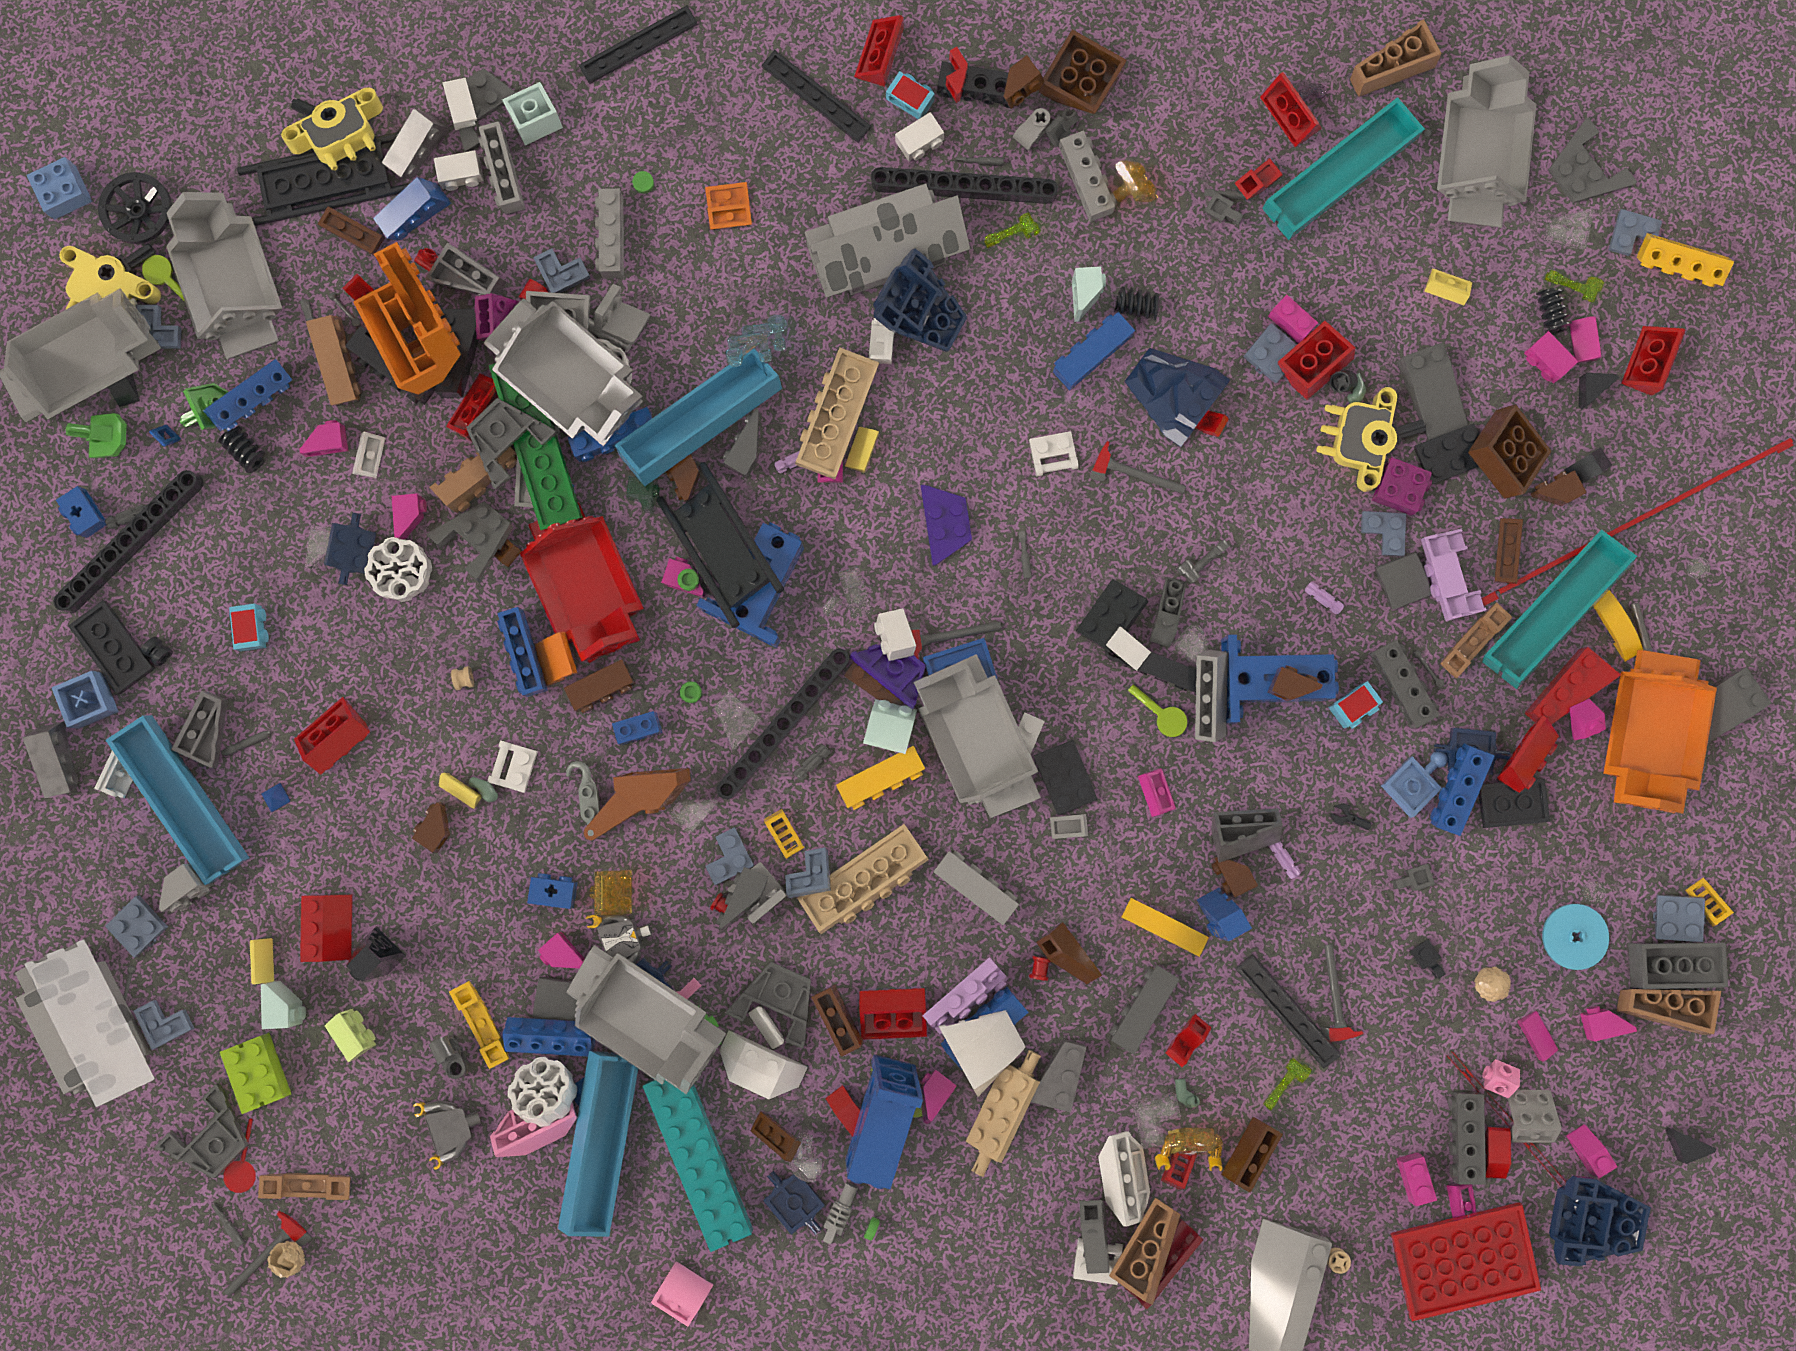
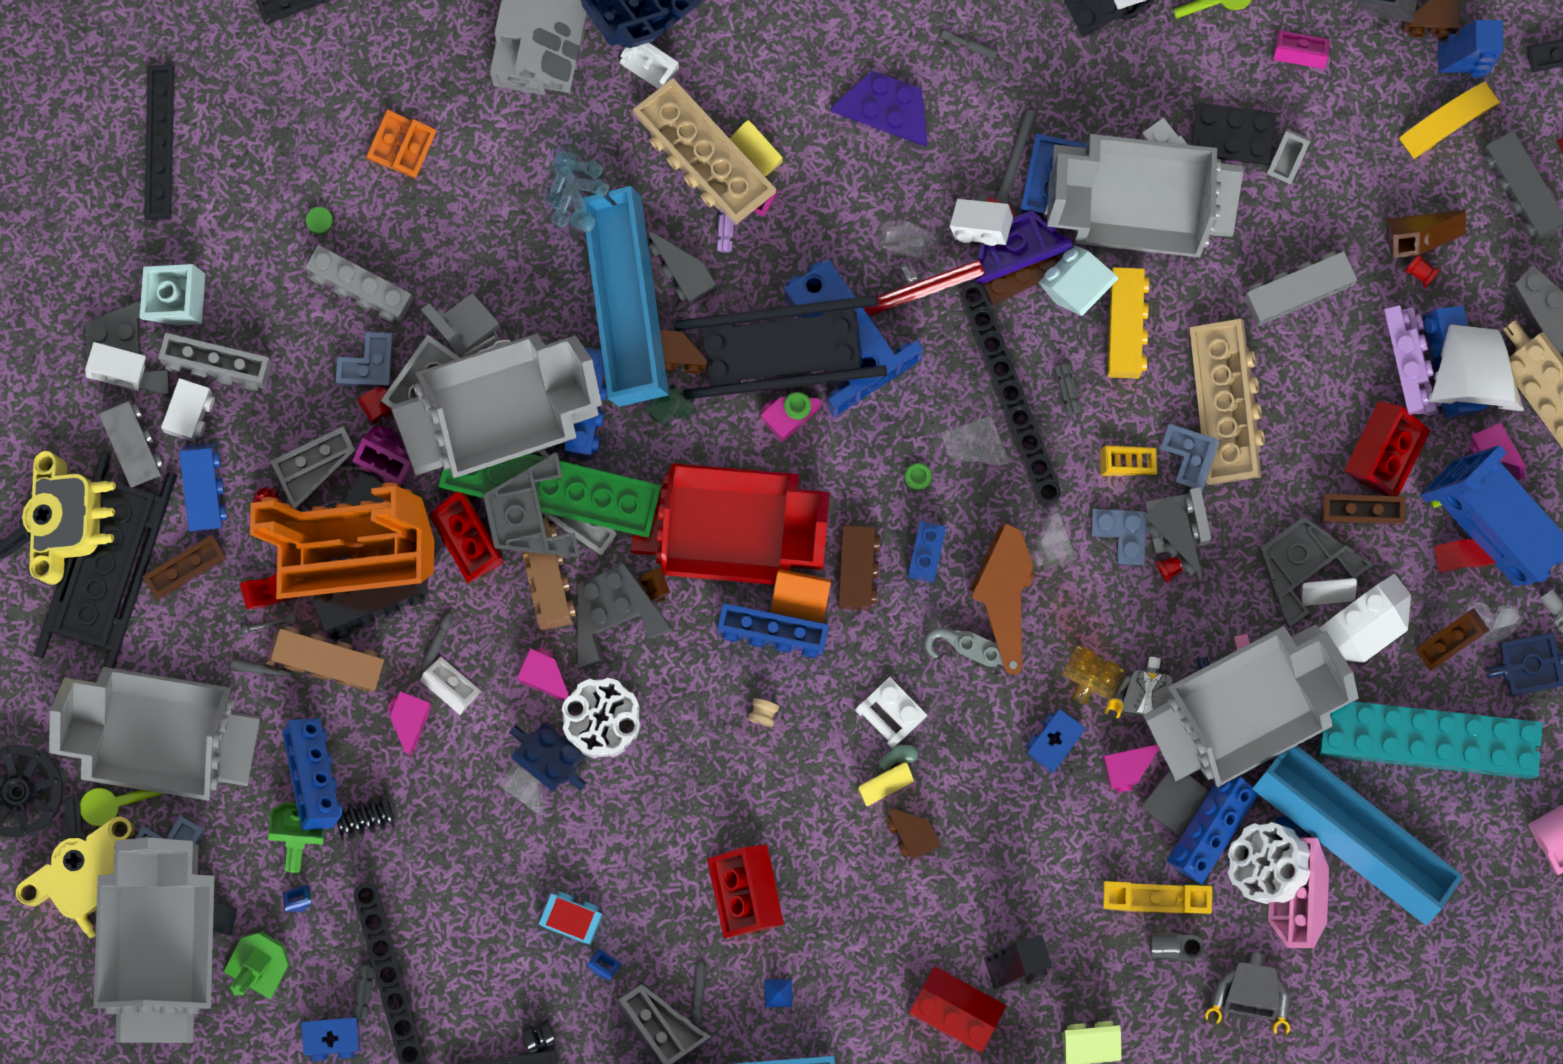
camera: 65 degrees left, 5 degrees down
(224, 667) = (601, 971): none -> blue slope
(390, 429) = (444, 625): none -> dark grey piece
(824, 619) = (926, 287): none -> axle

